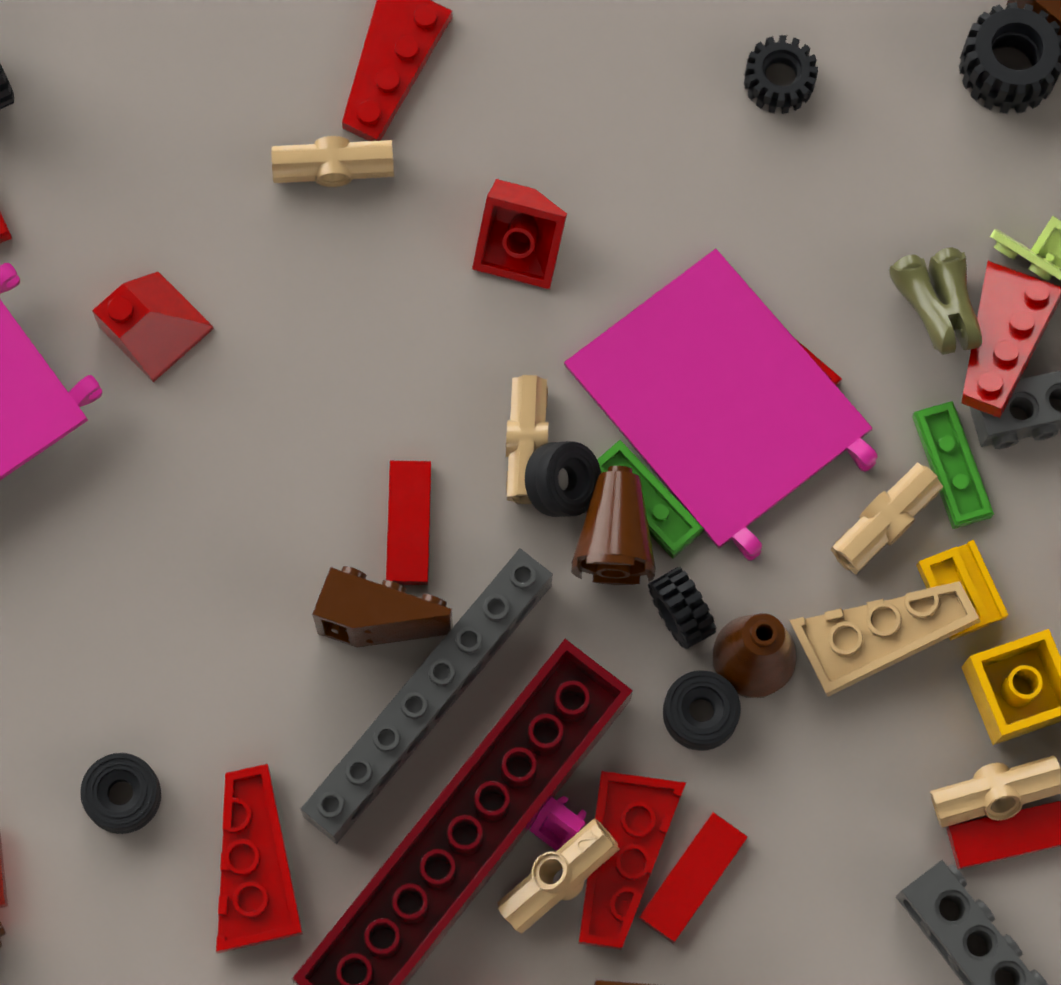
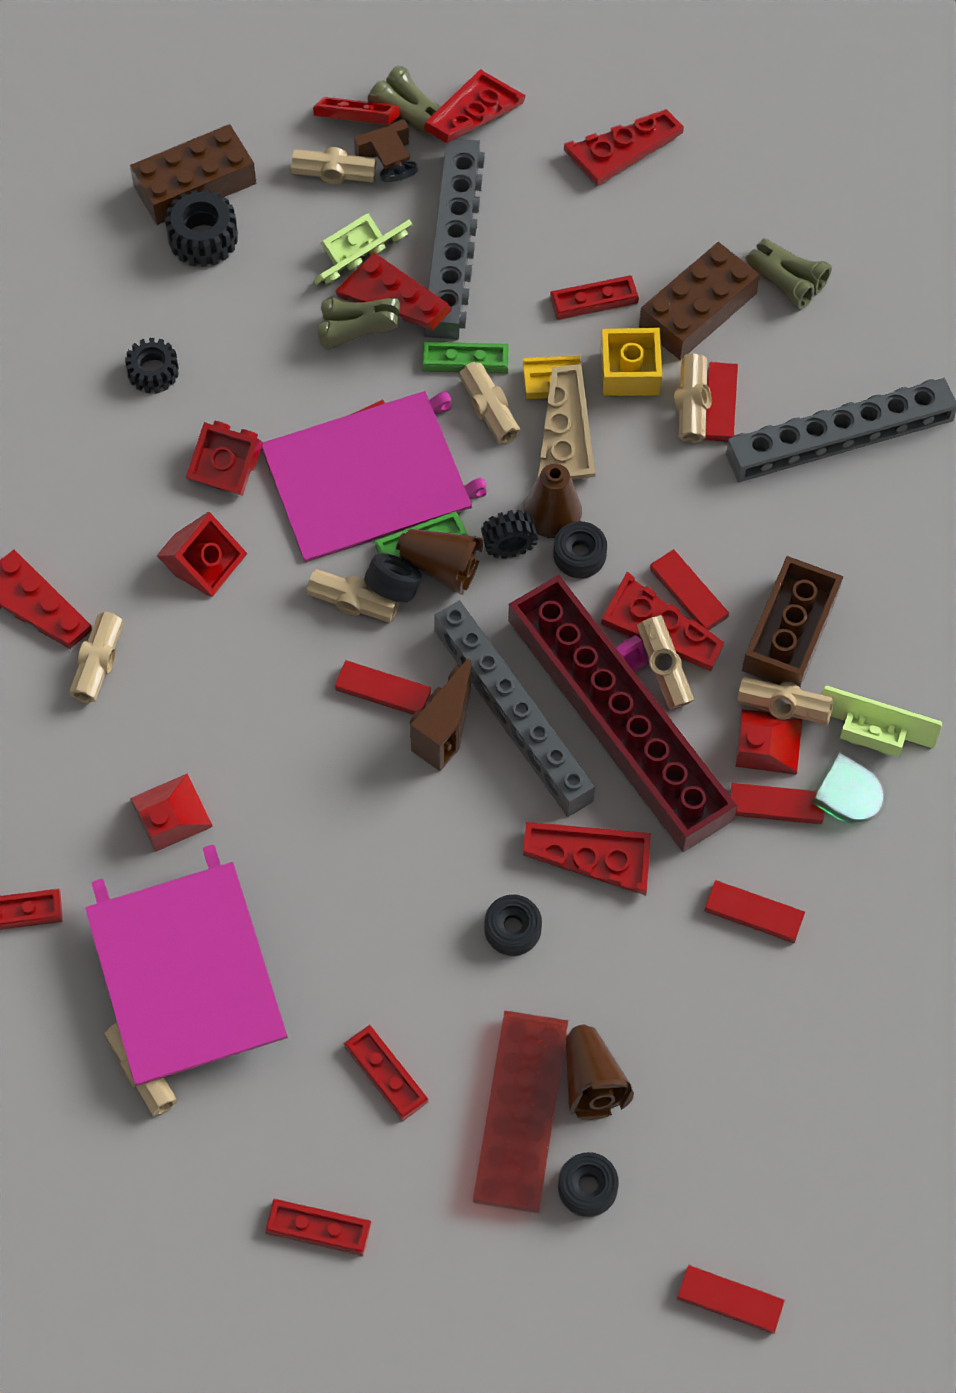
camera: 70 degrees left, 10 degrees down
(673, 210) = (224, 457): none -> red plate

